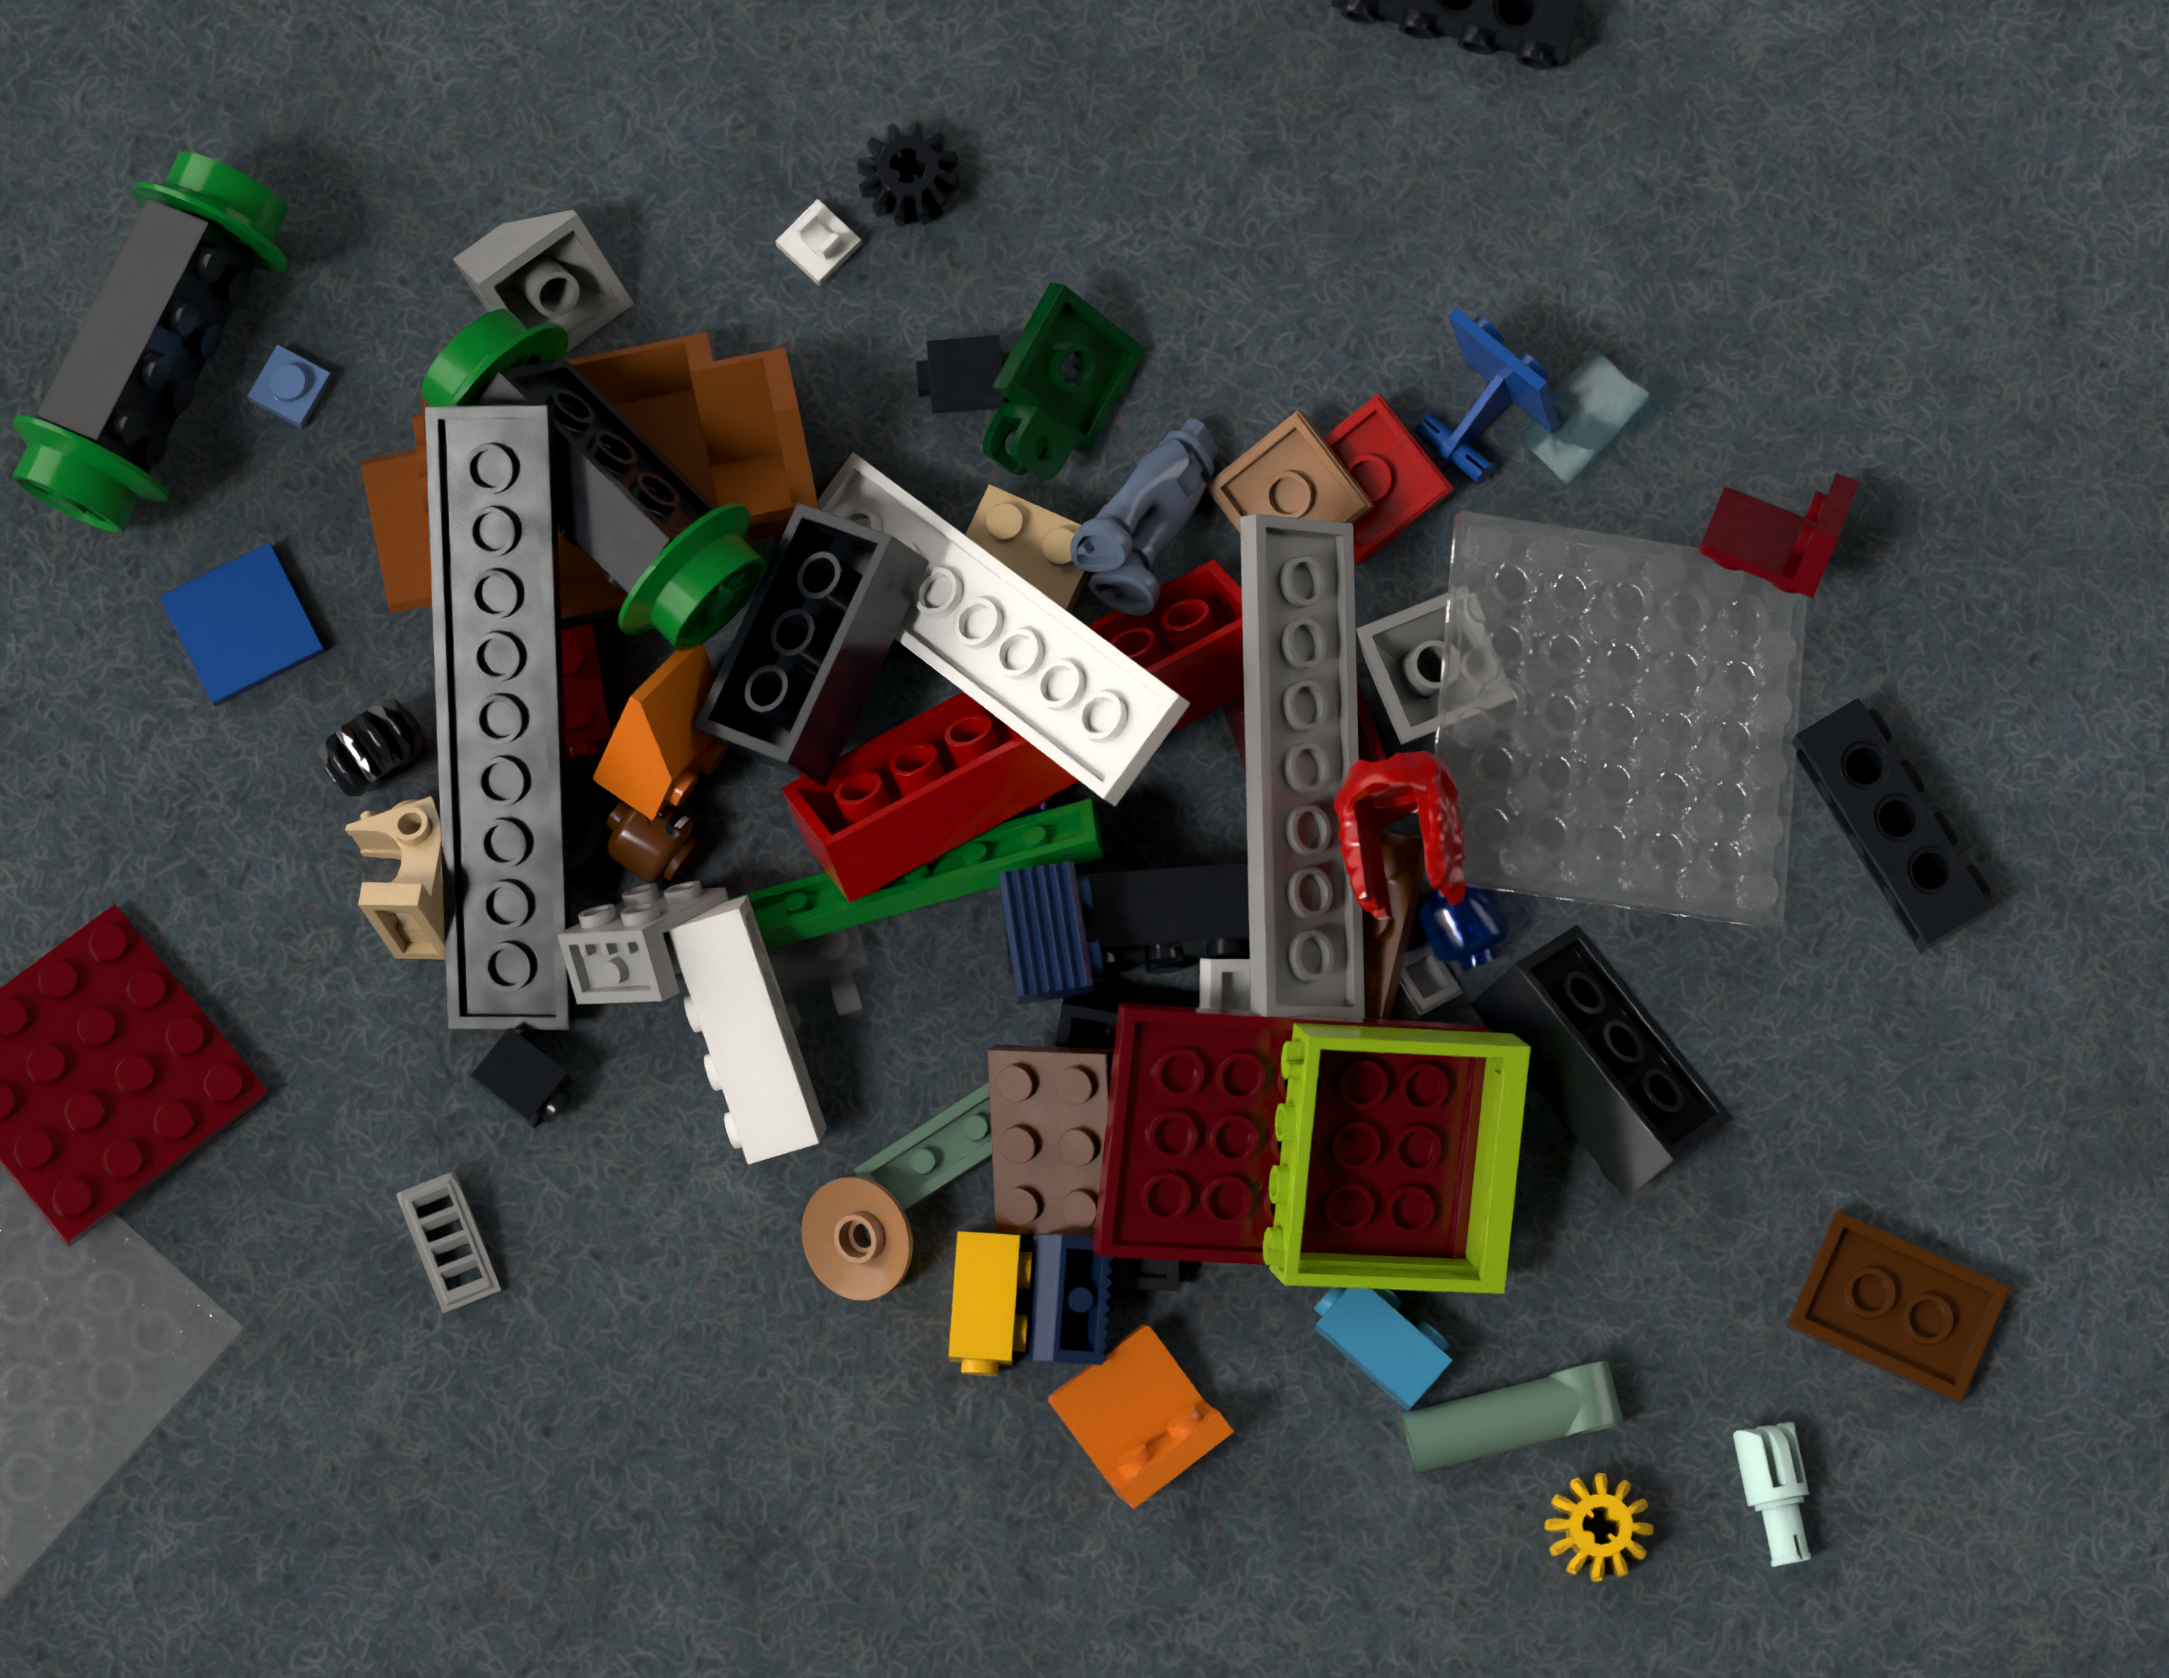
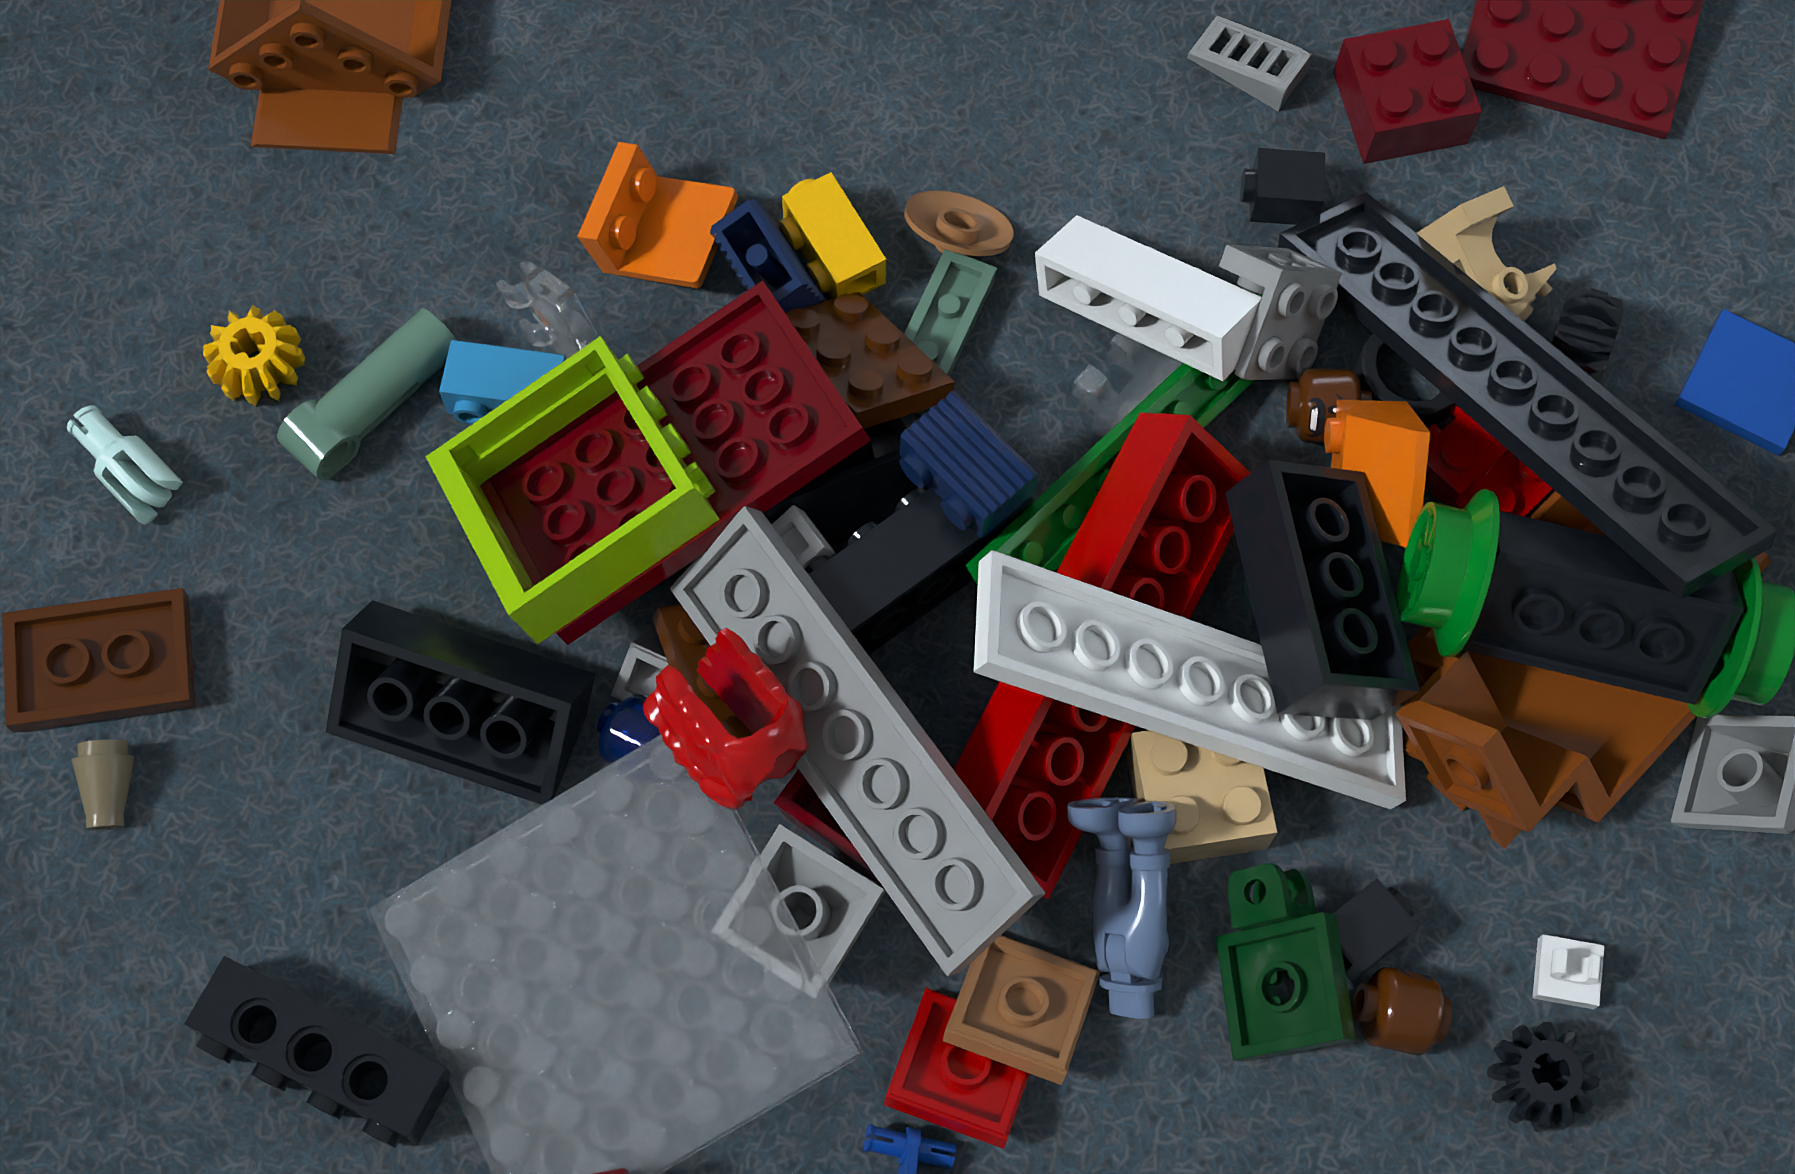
camera: 145 degrees right, 10 degrees down
(334, 1099) = (1406, 91): none -> dark red brick
(983, 293) = (1402, 1011): none -> reddish brown head
(1302, 1364) = (554, 306): none -> clear plate
(1949, 1188) = (103, 780): none -> dark tan cone

